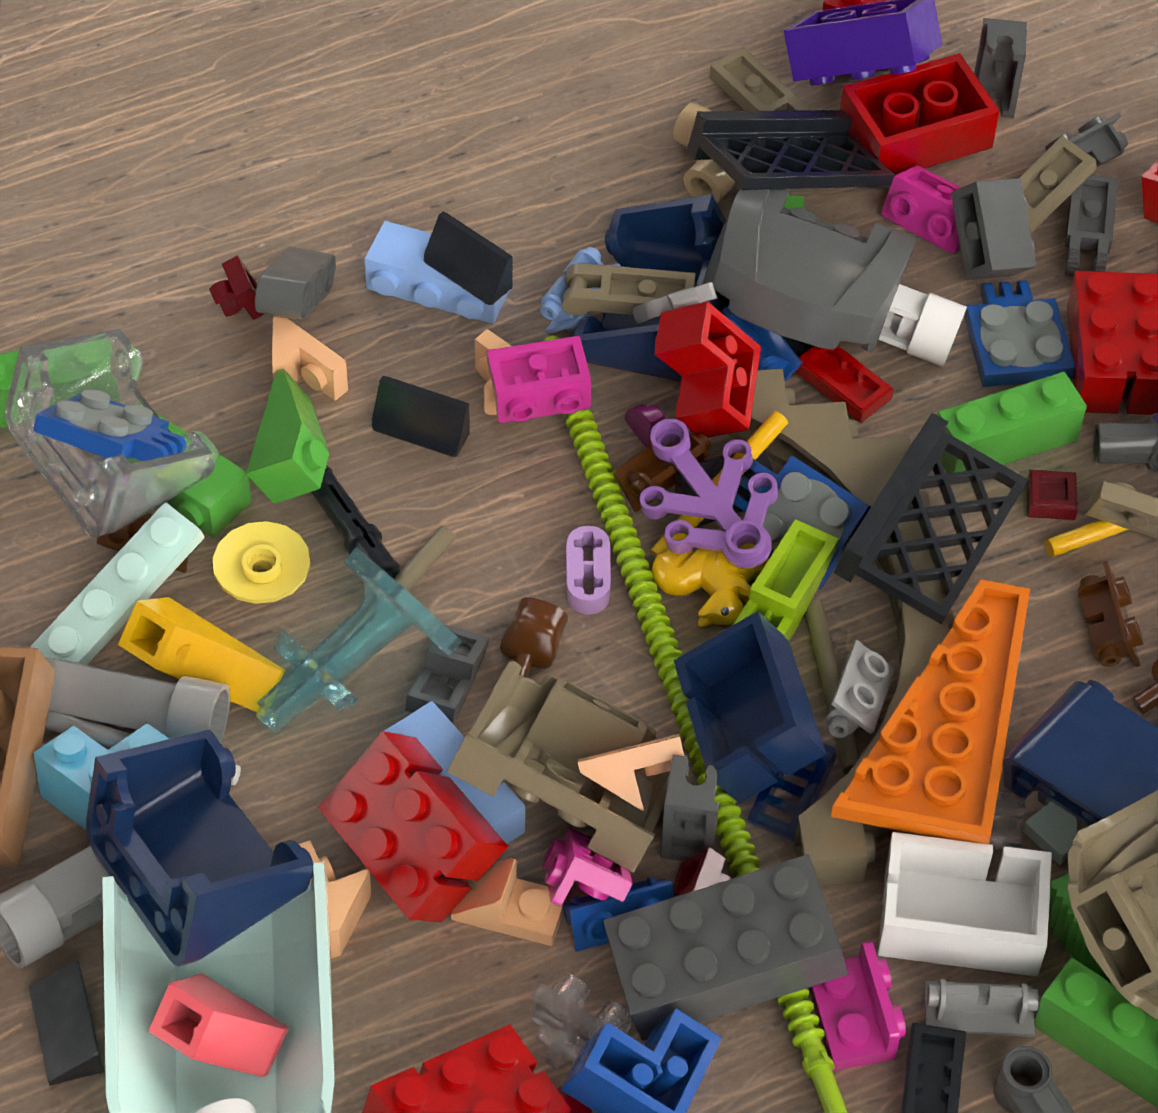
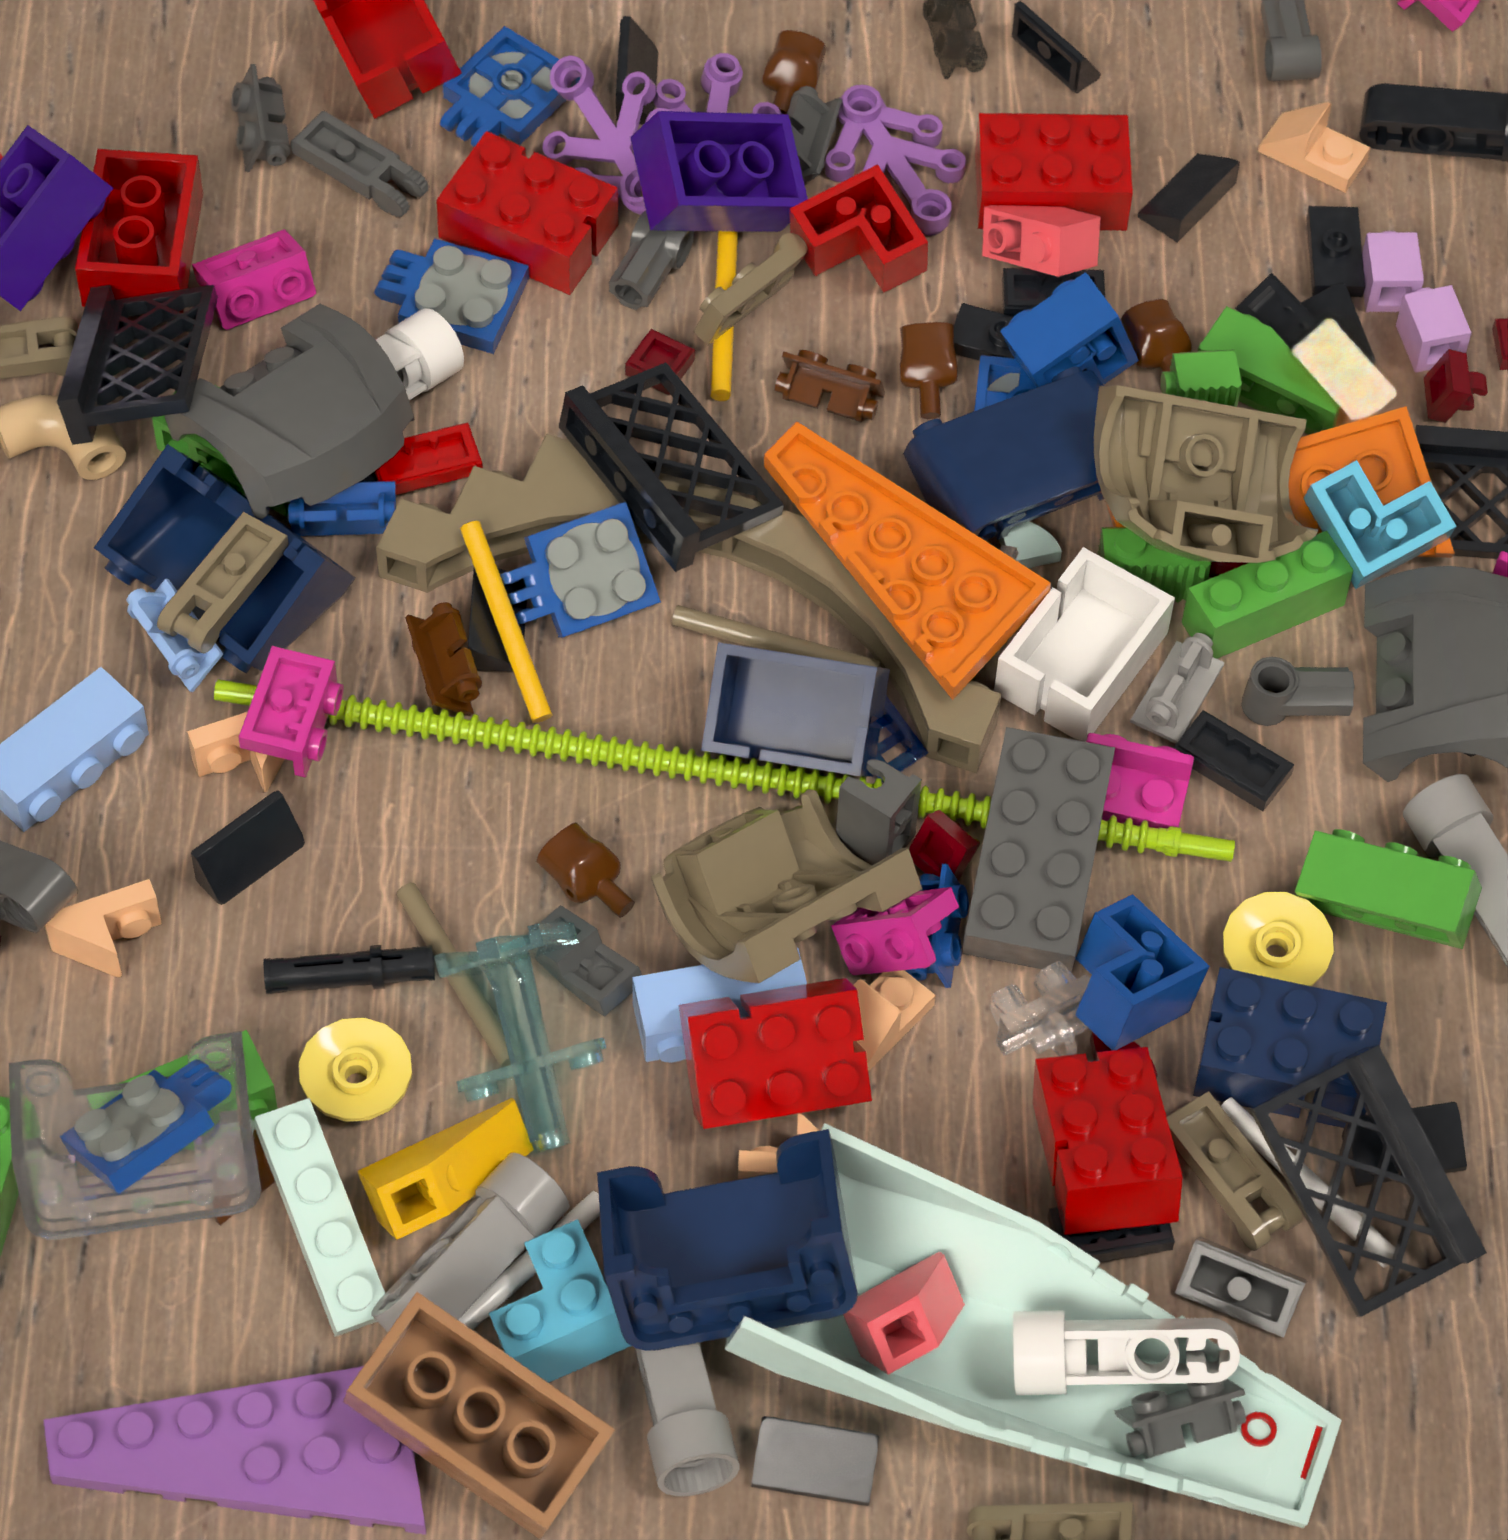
camera: 65 degrees left, 5 degrees up
(290, 445) = (234, 980): bright green slope -> none
(469, 259) = (97, 703): black slope -> none
(578, 570) = (527, 781): lavender beam -> none
(616, 767) = (804, 838): light nougat slope -> none
(642, 420) = (377, 653): magenta tile -> none
(674, 301) = (290, 517): light grey piece -> none
(707, 569) = (599, 669): yellow animal -> none
(712, 501) = (537, 629): medium lavender plant -> none
(715, 366) = (392, 551): red brick -> none
(791, 577) = (663, 628): lime slope -> none
(859, 692) = (799, 608): light grey hinge -> none
(993, 229) = (338, 239): dark grey brick -> none
(1002, 61) = (125, 116): dark grey hinge -> none
(1017, 421) = (571, 341): bright green brick -> none
(1054, 179) = (304, 180): dark tan plate -> none

